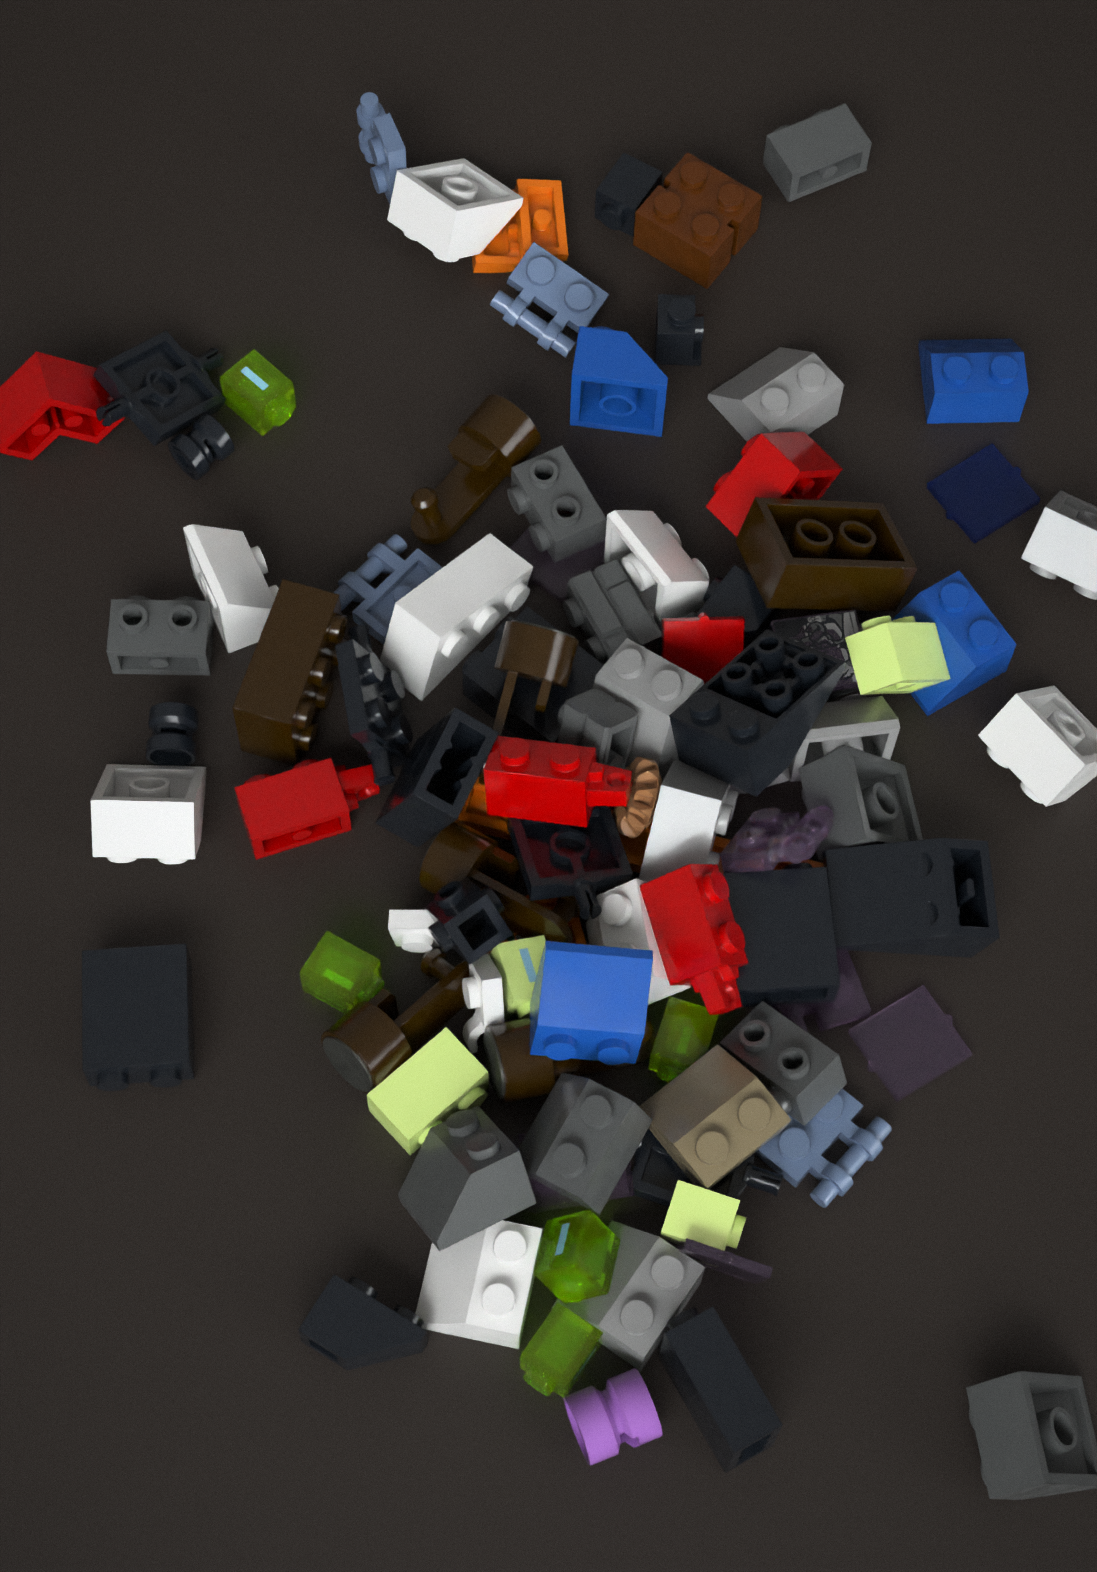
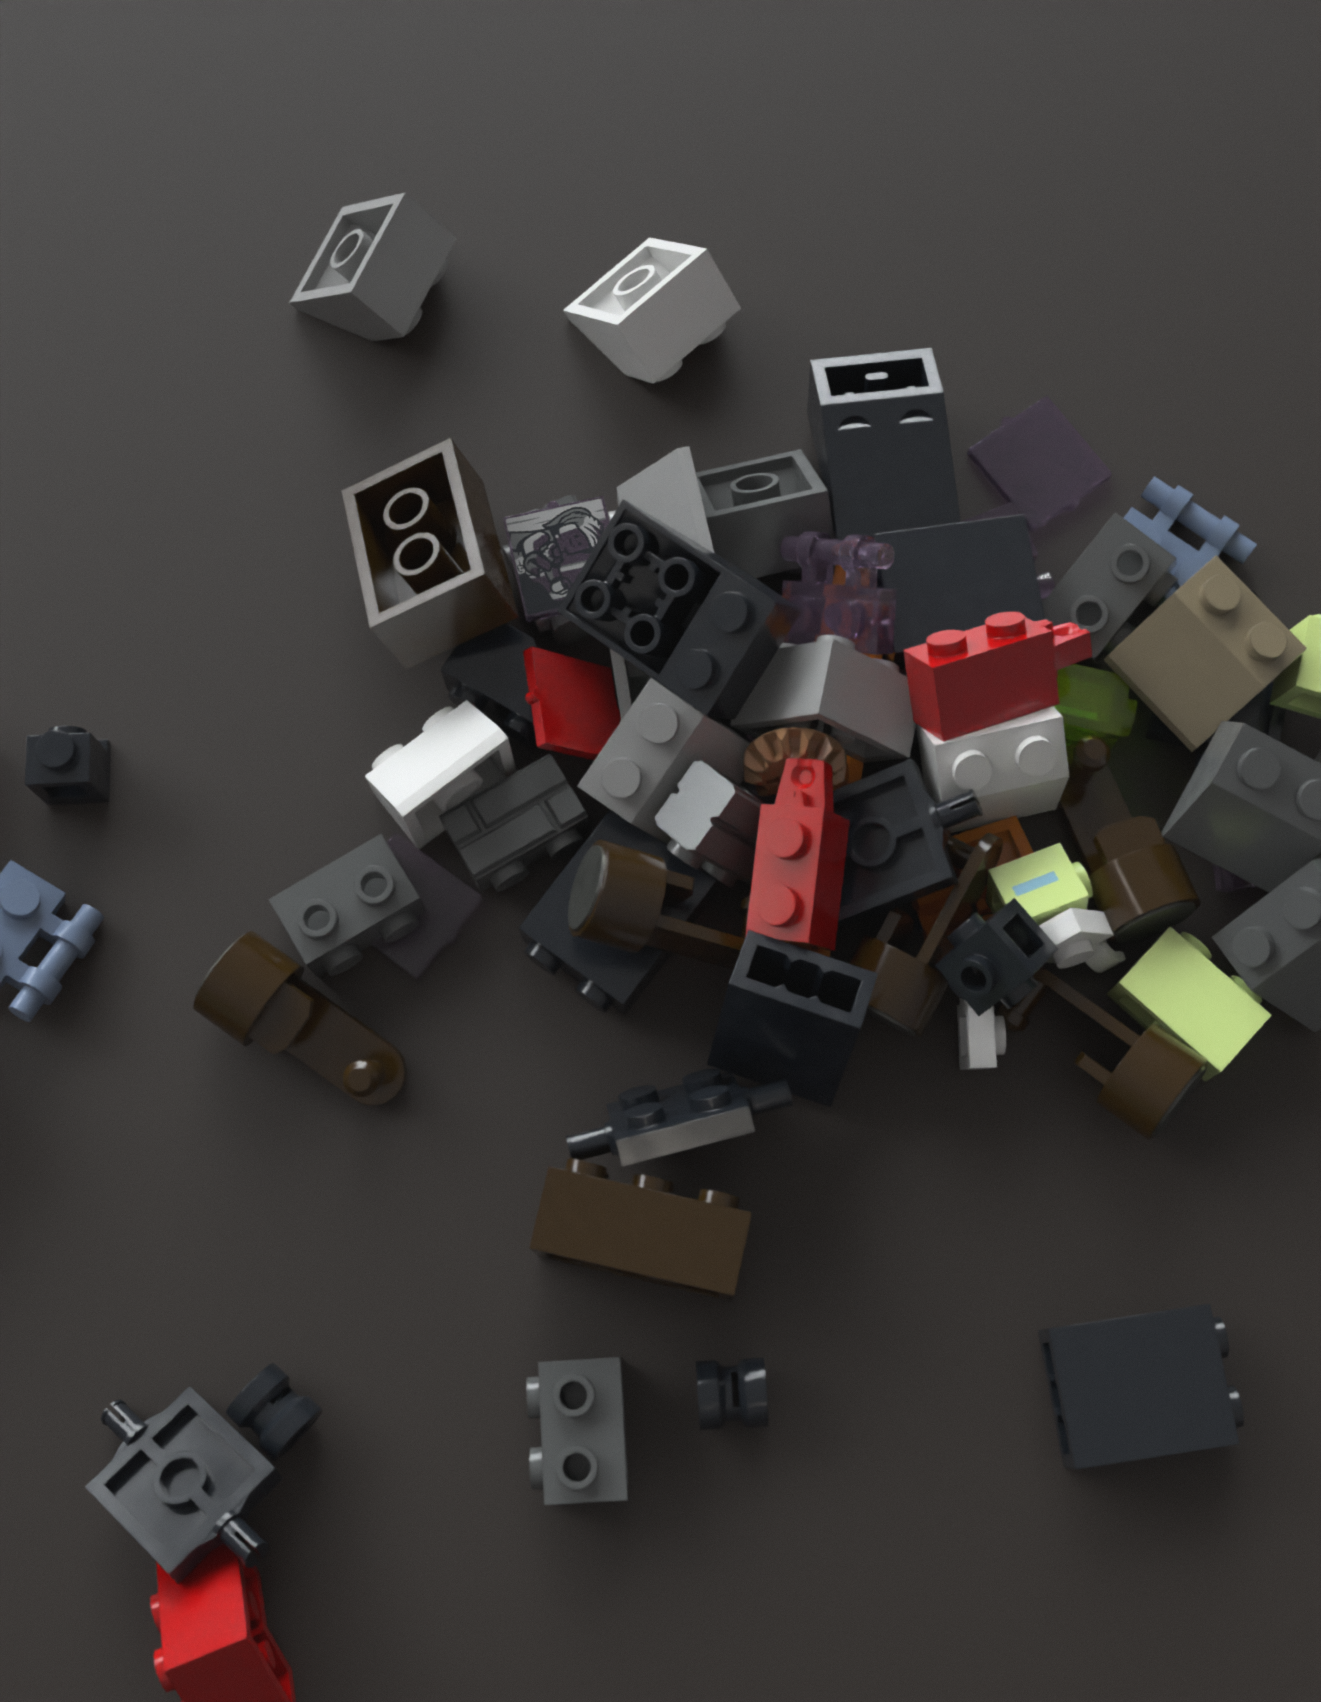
camera: 90 degrees left, 10 degrees up
(148, 813) = (846, 1411): white slope -> none
(232, 581) = (503, 1331): white slope -> none
(258, 392) = (181, 1336): clear neon green brick -> none
(301, 804) = (819, 1205): red hinge -> none
(341, 973) = (1051, 1125): clear neon green brick -> none
(379, 603) = (496, 1102): sand blue plate -> none
(453, 613) = (526, 1022): white wedge -> none
(590, 1002) = (1113, 791): blue slope -> none
(616, 384) = (165, 836): blue slope -> none
(772, 467) = (307, 617): red brick -> none
(780, 394) = (167, 636): light grey slope -> none
(896, 656) = (572, 464): yellowish green brick -> none
(970, 637) = (525, 425): blue slope -> none
(973, 380) = (130, 398): blue slope -> none
(983, 493) = (296, 391): clear blue piece -> none

